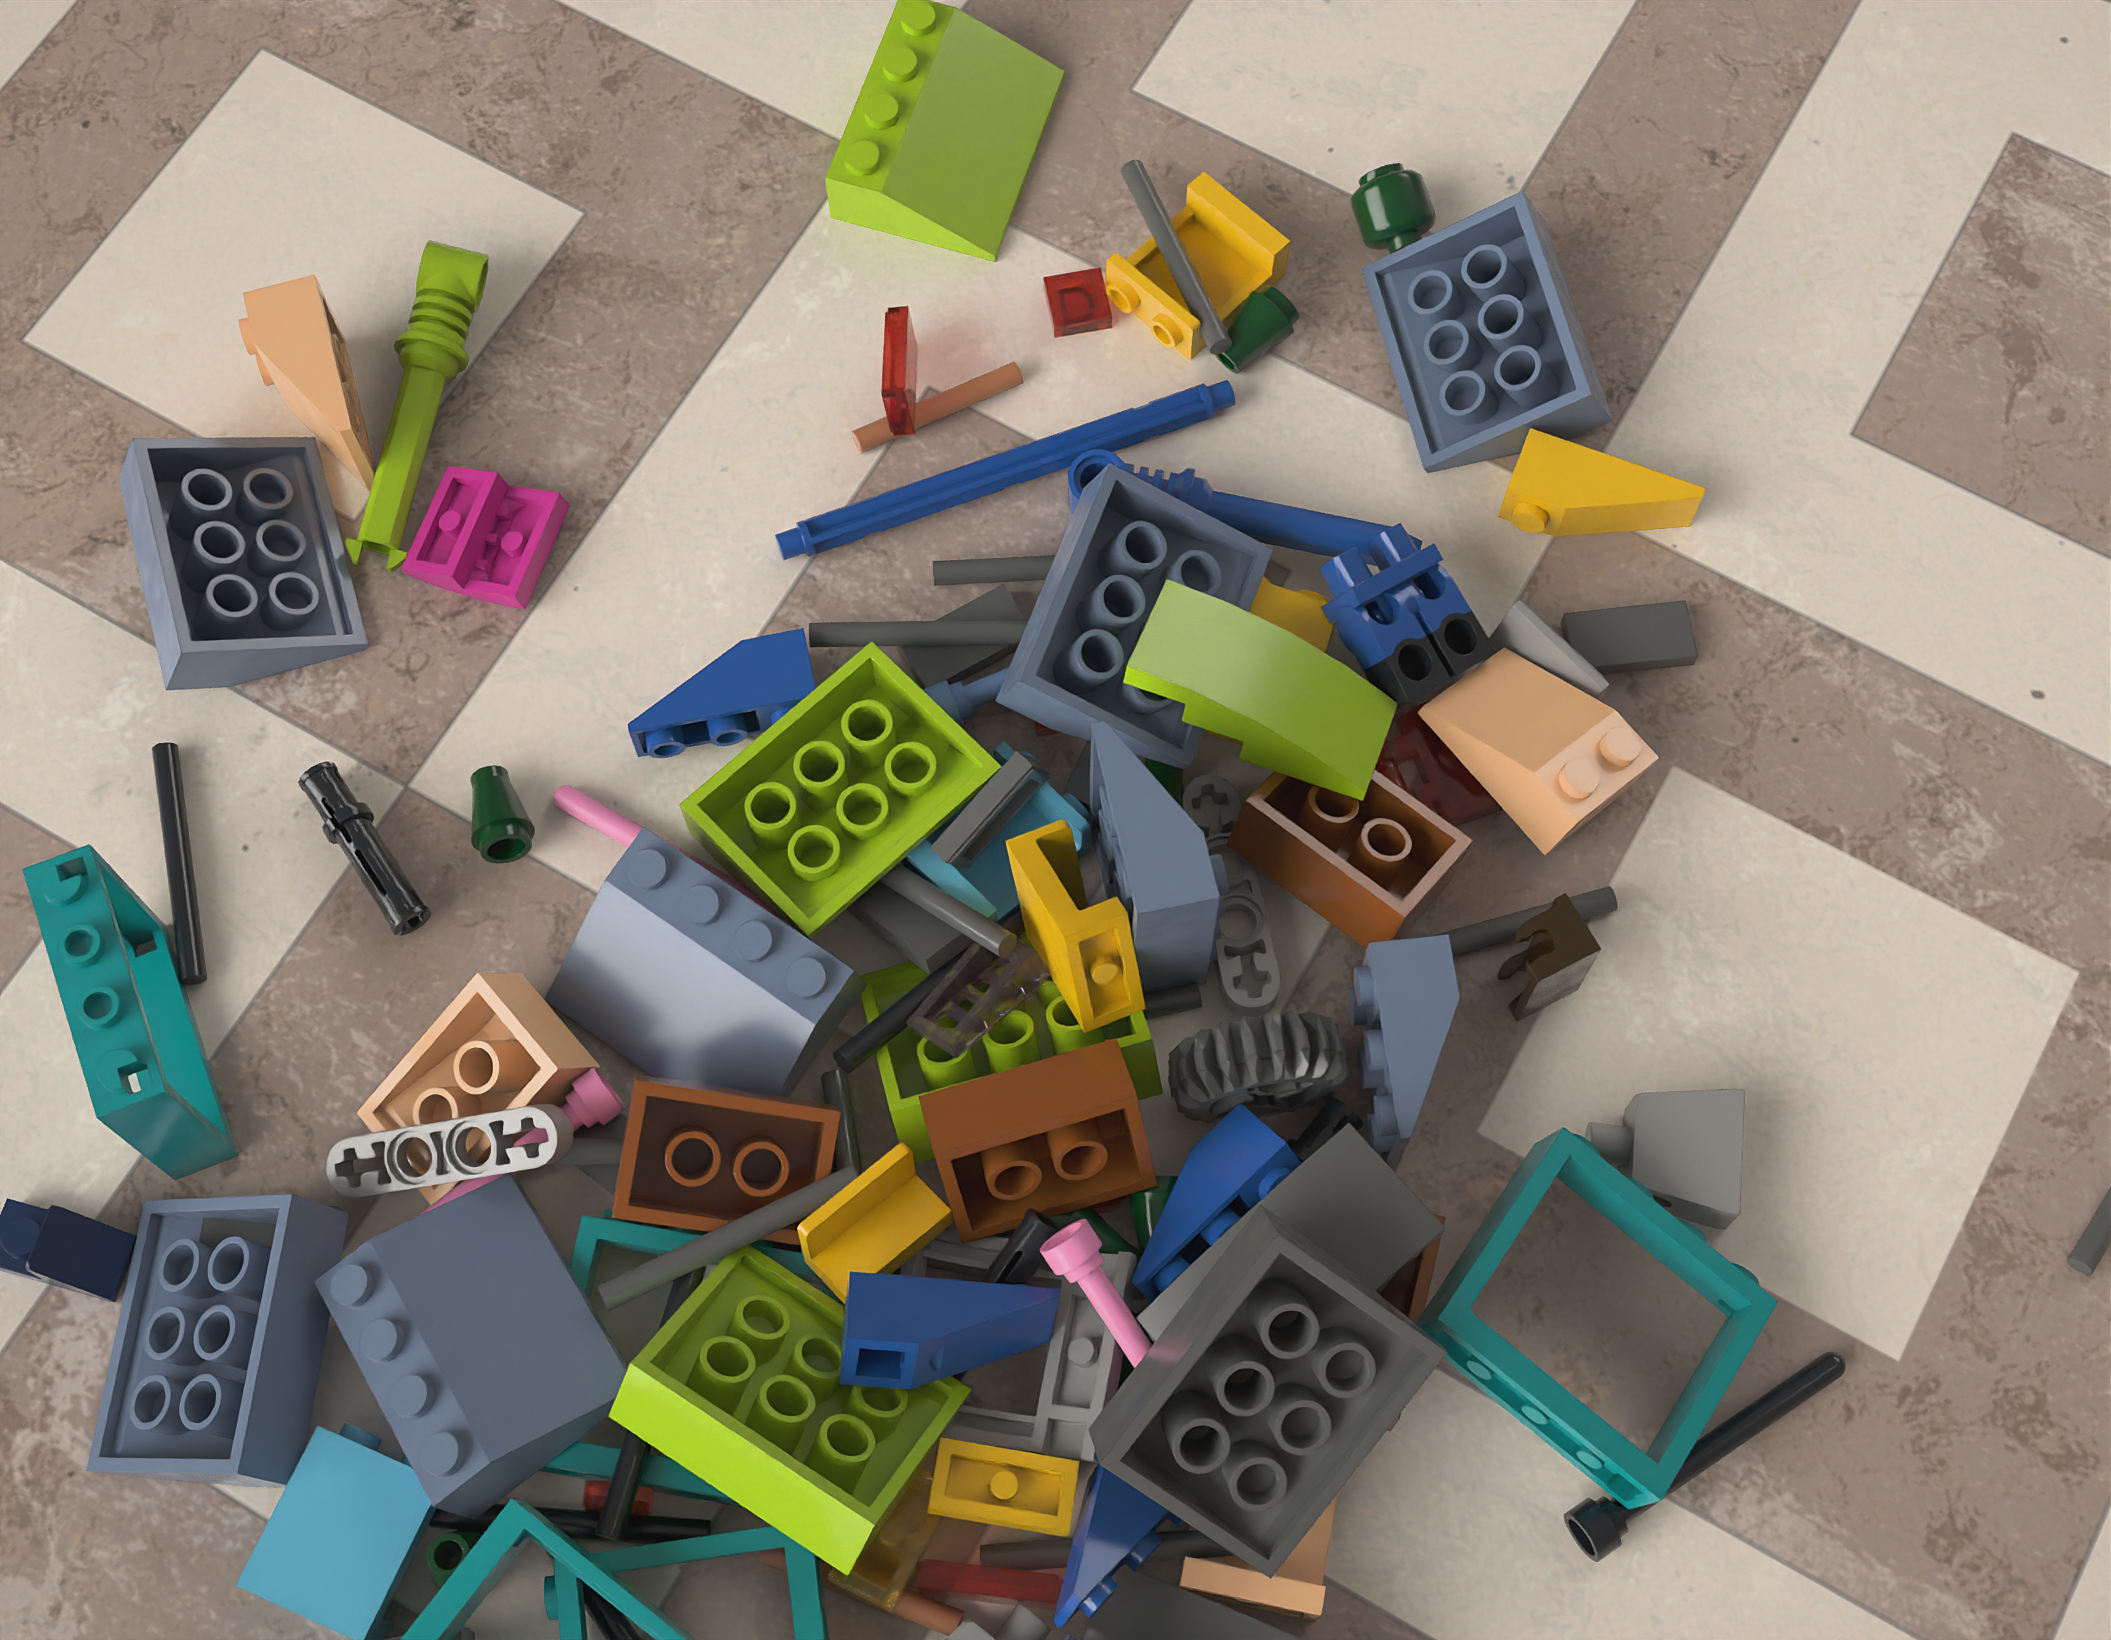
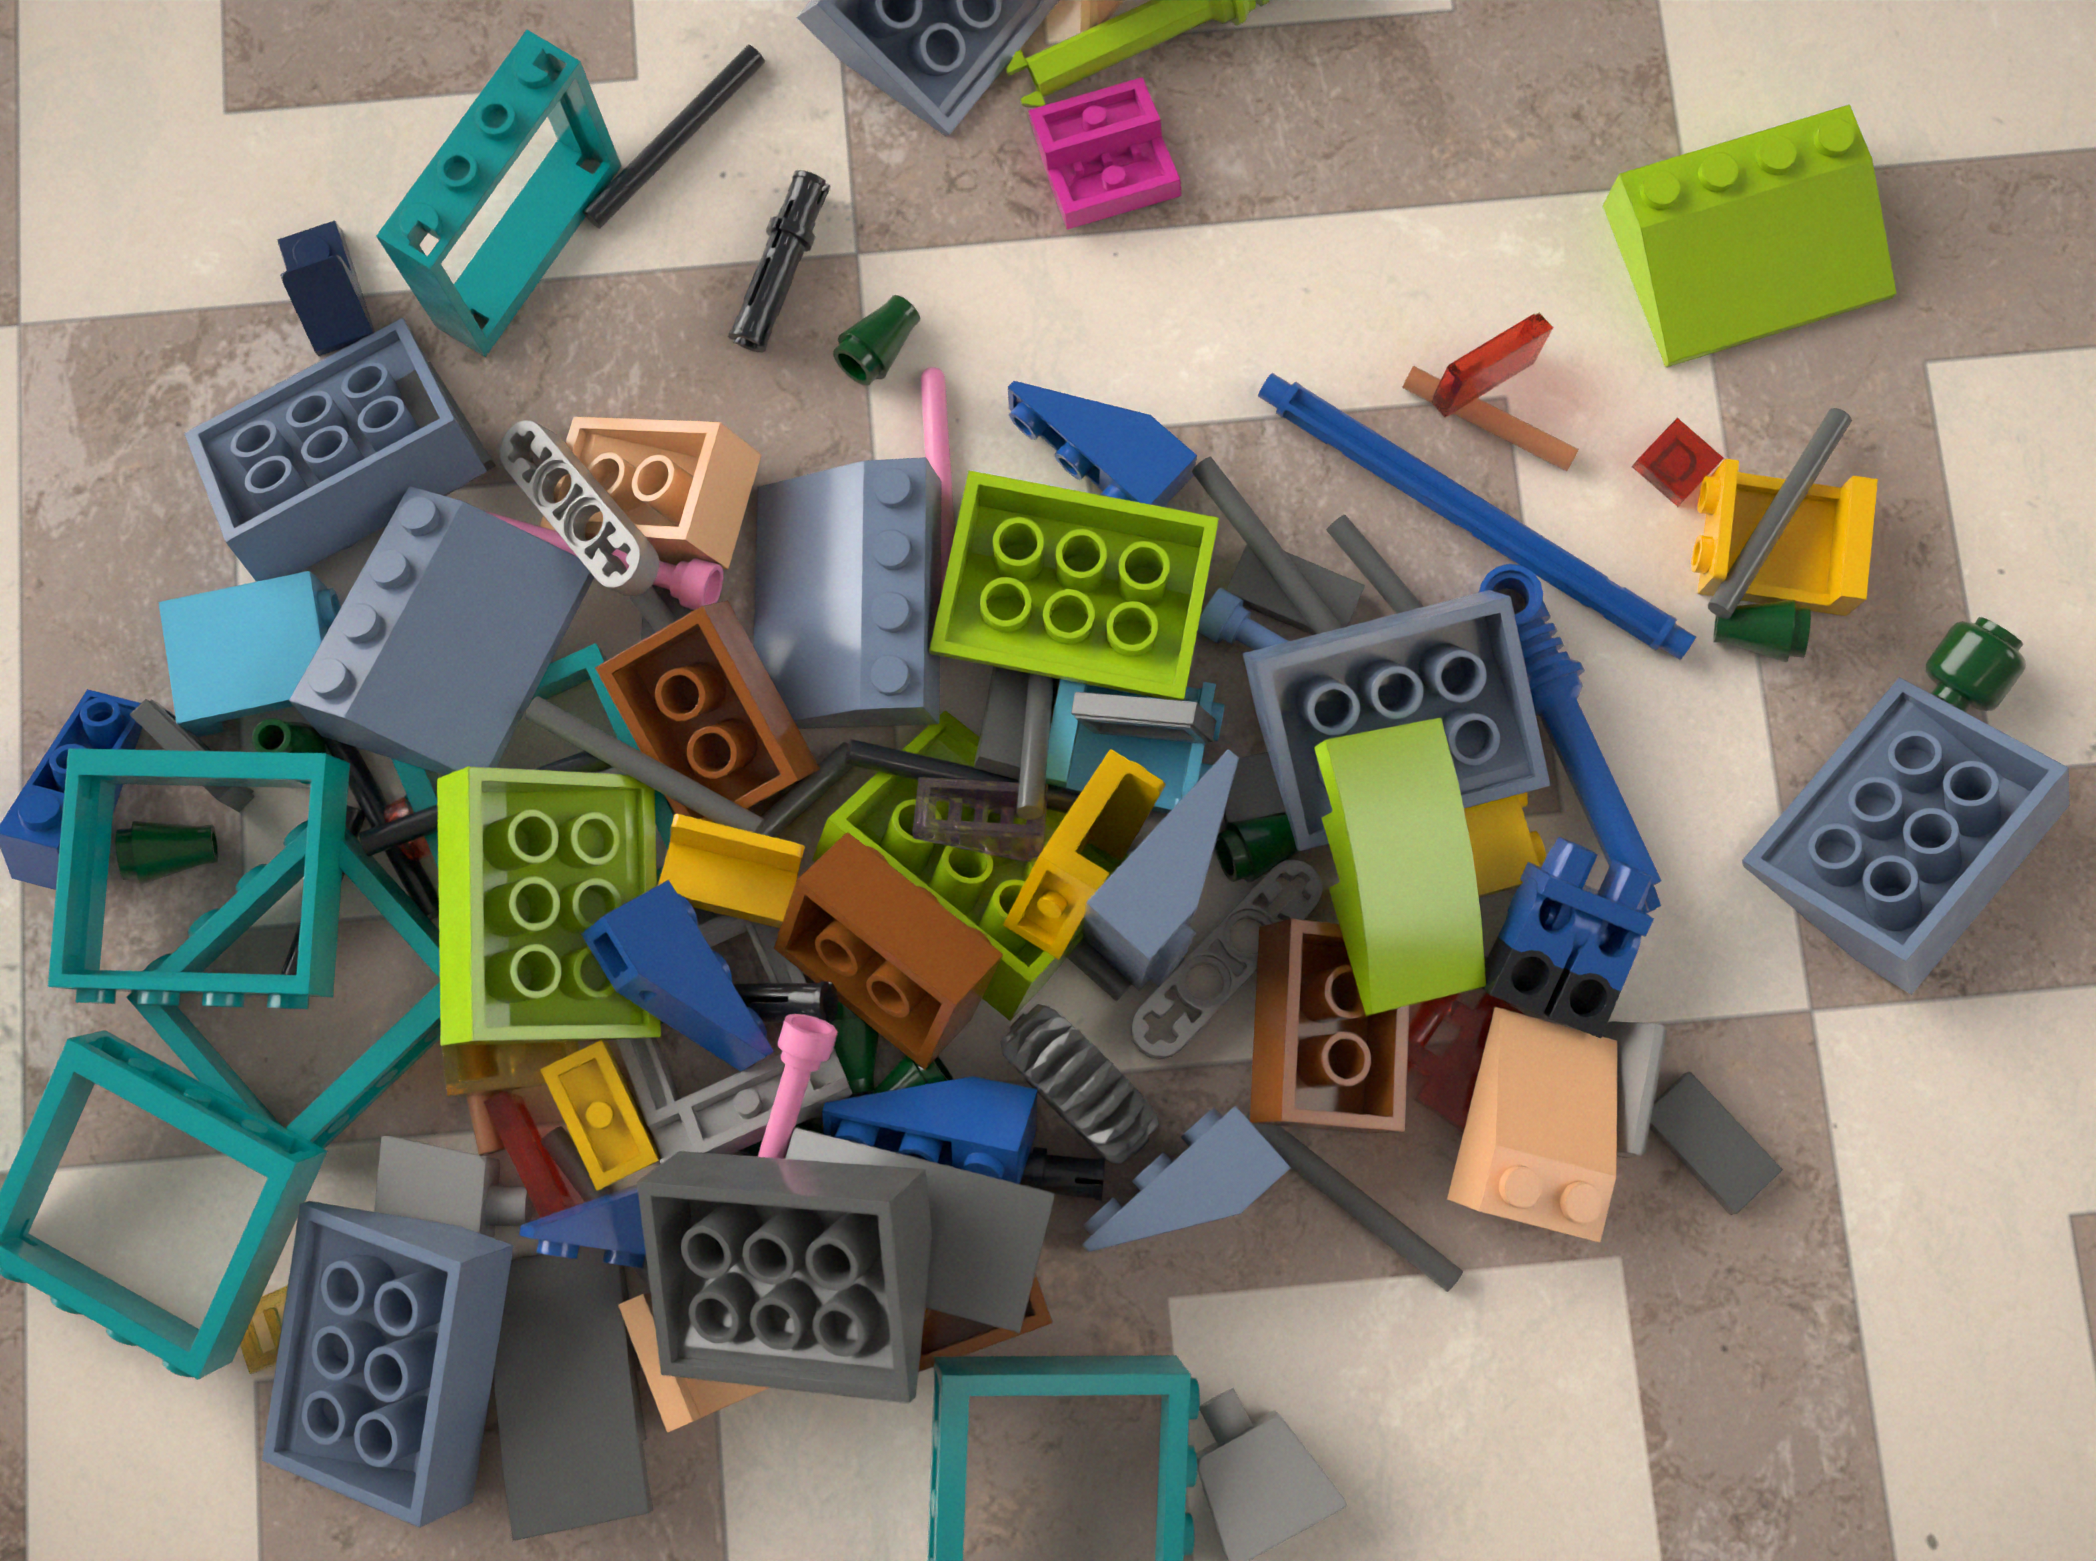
camera: 55 degrees right, 10 degrees up
(1555, 958) = (1358, 1264): dark brown hinge -> none
(1584, 492) = (1818, 1008): yellow slope -> none

